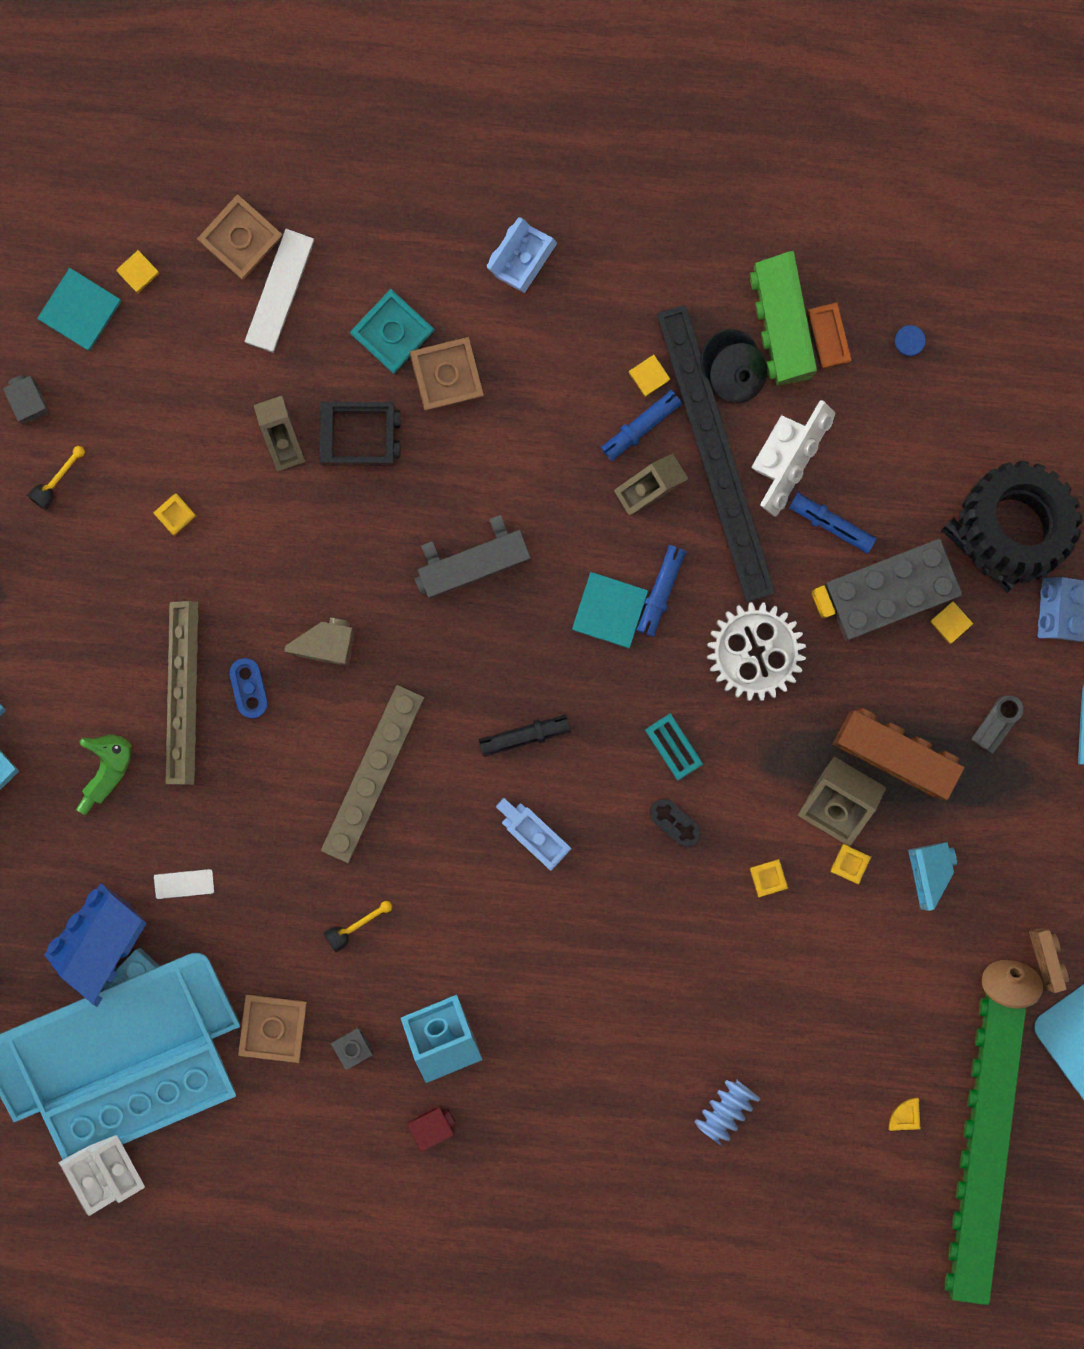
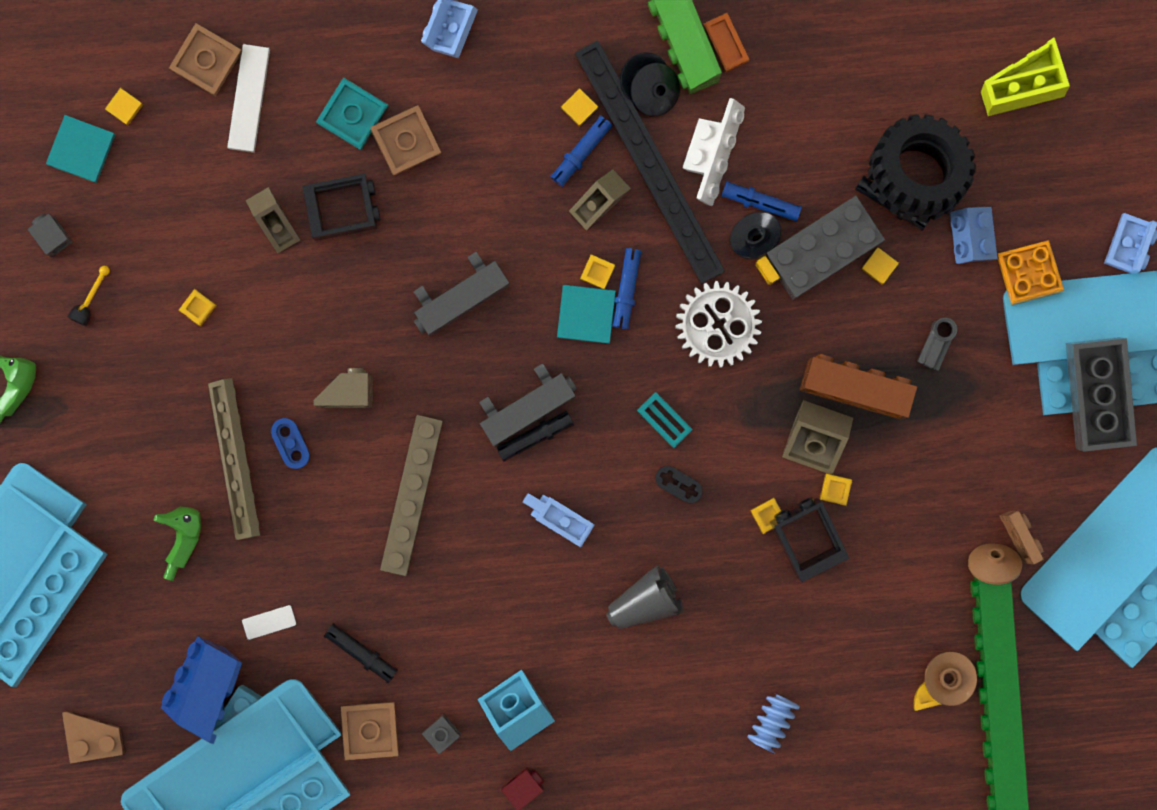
camera: 10 degrees left, 0 degrees up
(289, 949) = (361, 653): none -> black pin
(339, 937) = (410, 640): hinge -> none
(524, 703) = (527, 409): none -> dark grey brick
(612, 945) = (646, 601): none -> dark grey cone
(632, 565) = (597, 272): none -> yellow tile
(816, 551) = (750, 229): none -> black dish
(817, 942) = (820, 562): none -> black window
(909, 341) = (795, 33): blue tile -> none
(932, 872) = (907, 482): medium azure slope -> none
(950, 1104) = (962, 678): none -> medium nougat dish

